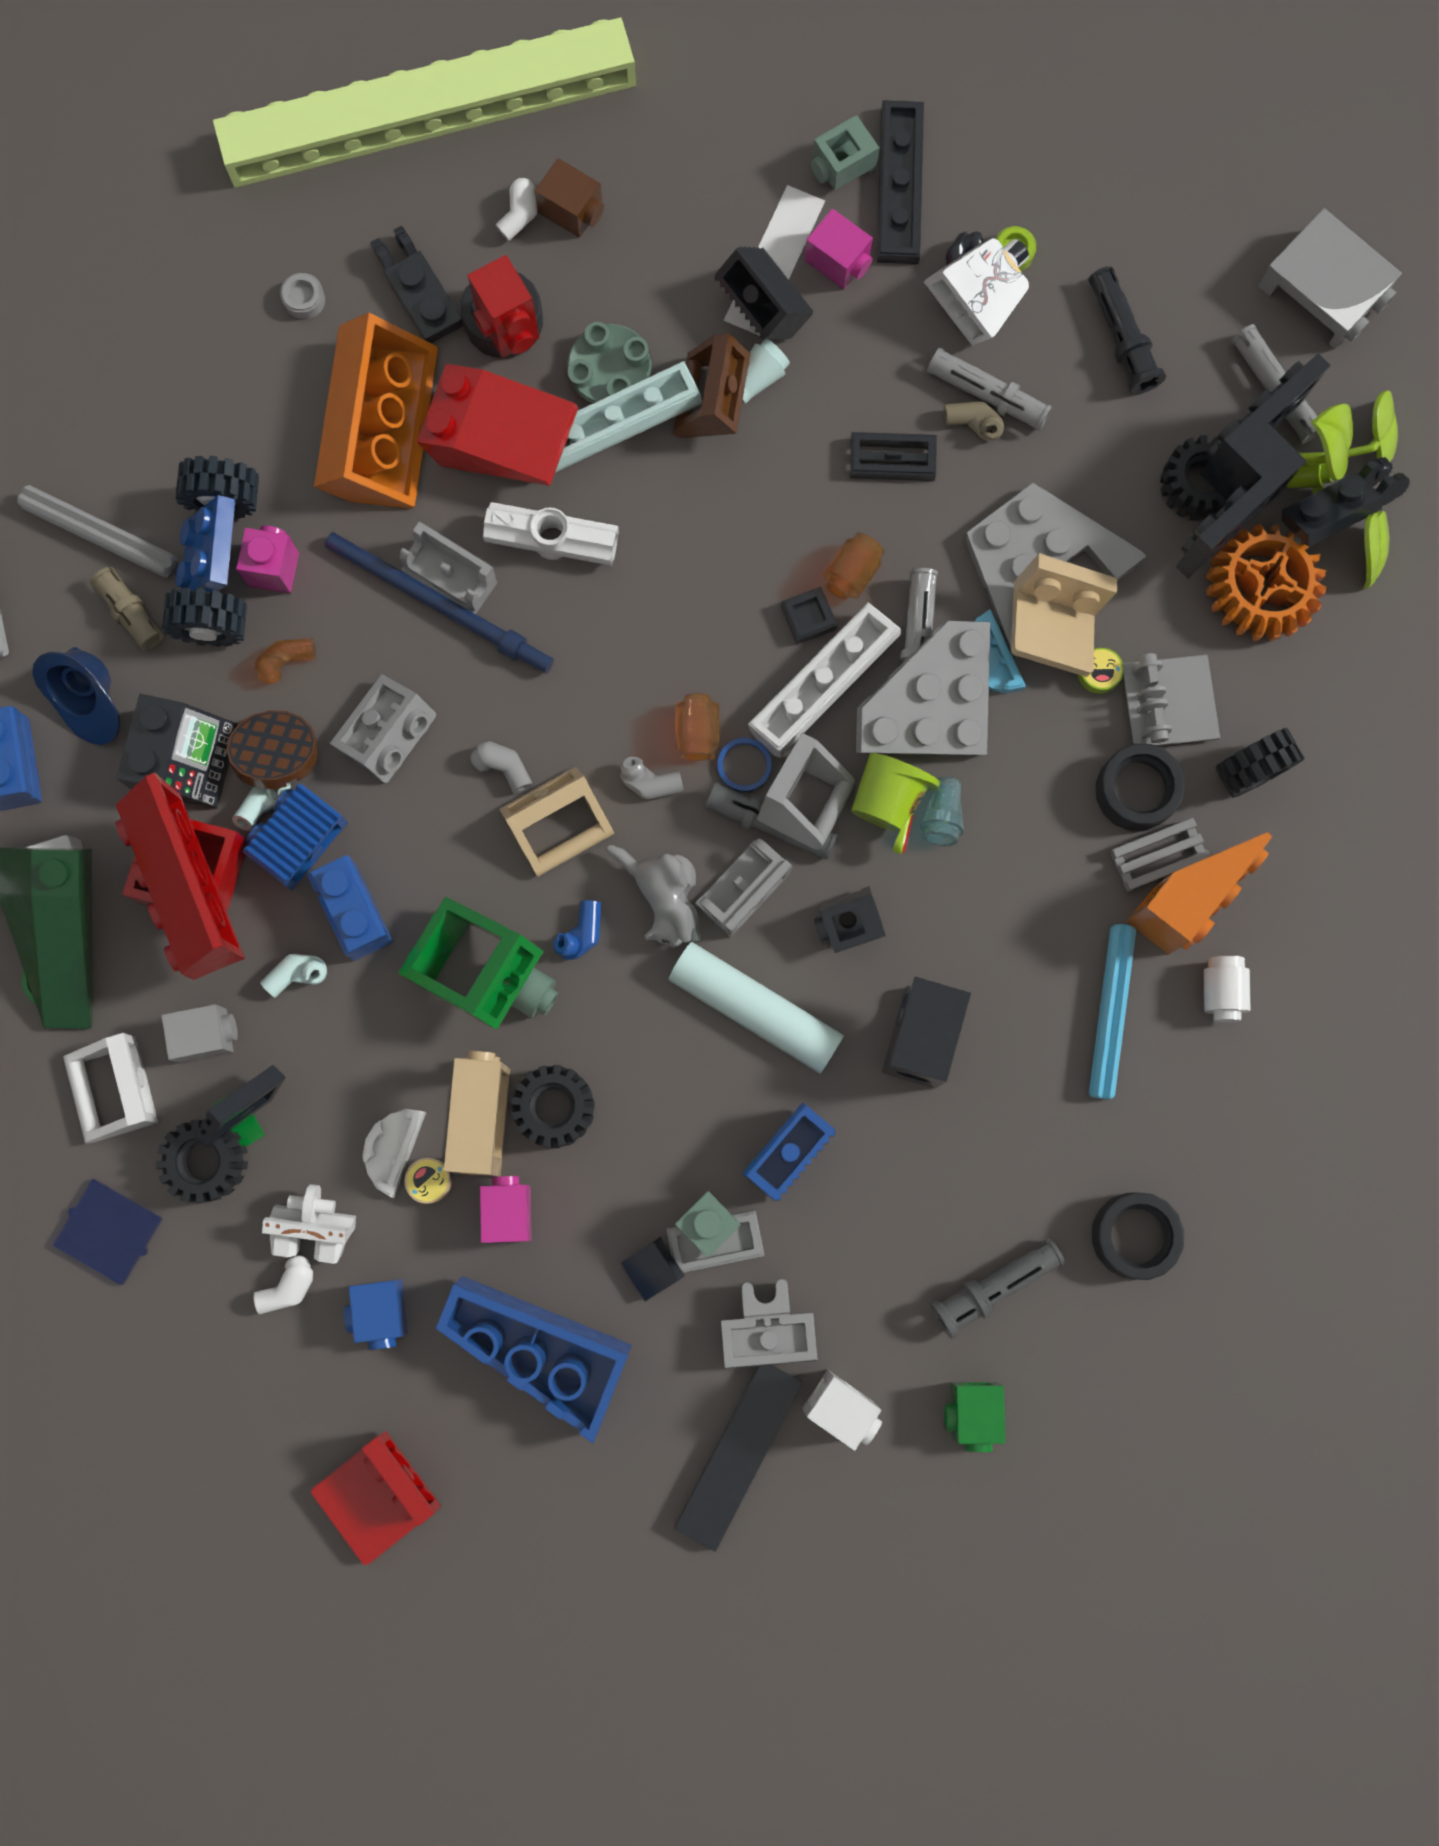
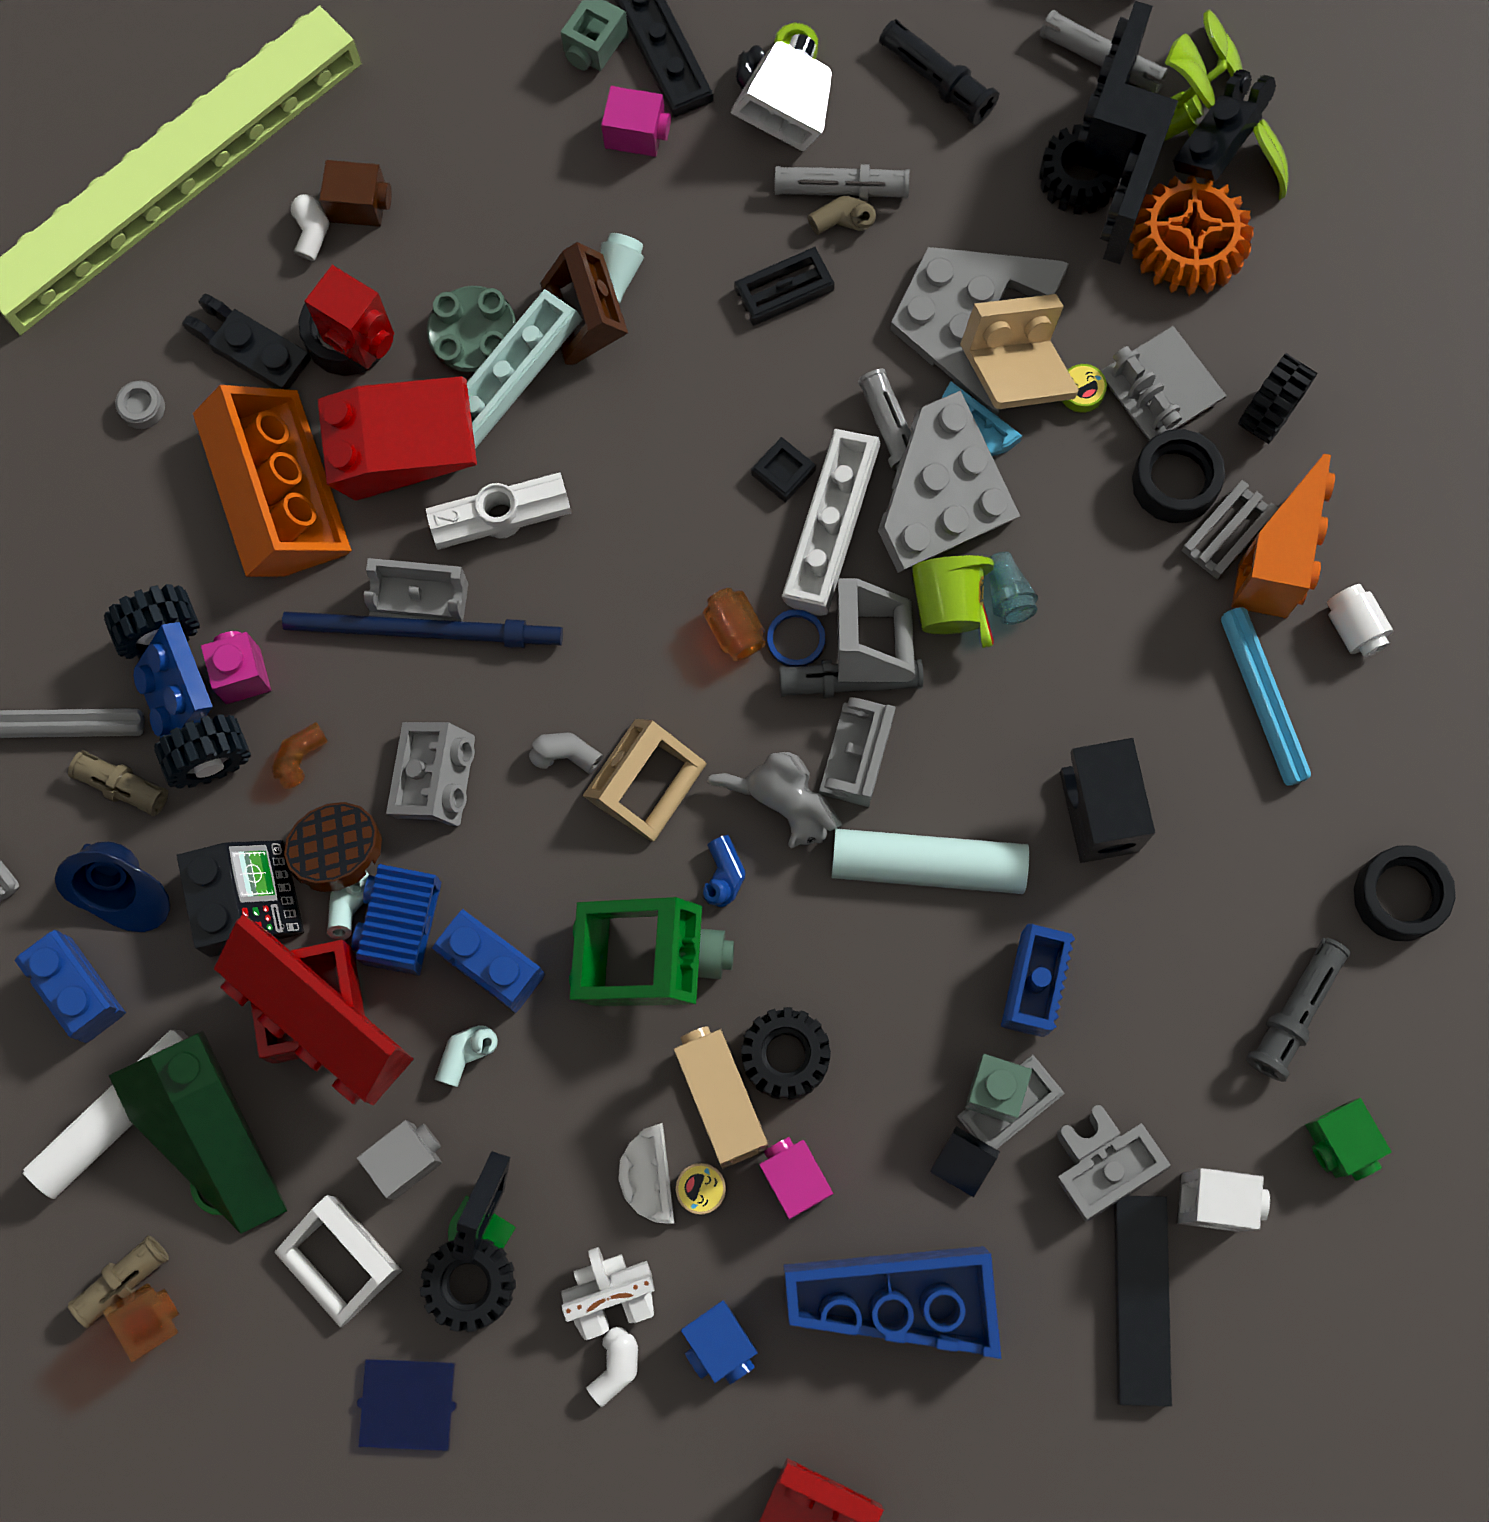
camera: 20 degrees left, 5 degrees down
(646, 783) = (712, 701): light grey arm -> none
(763, 293) = (586, 193): black brick -> none
(784, 238) = (577, 161): white sticker -> none
(854, 566) = (803, 403): clear orange brick -> none
(863, 930) = (993, 732): black brick -> none

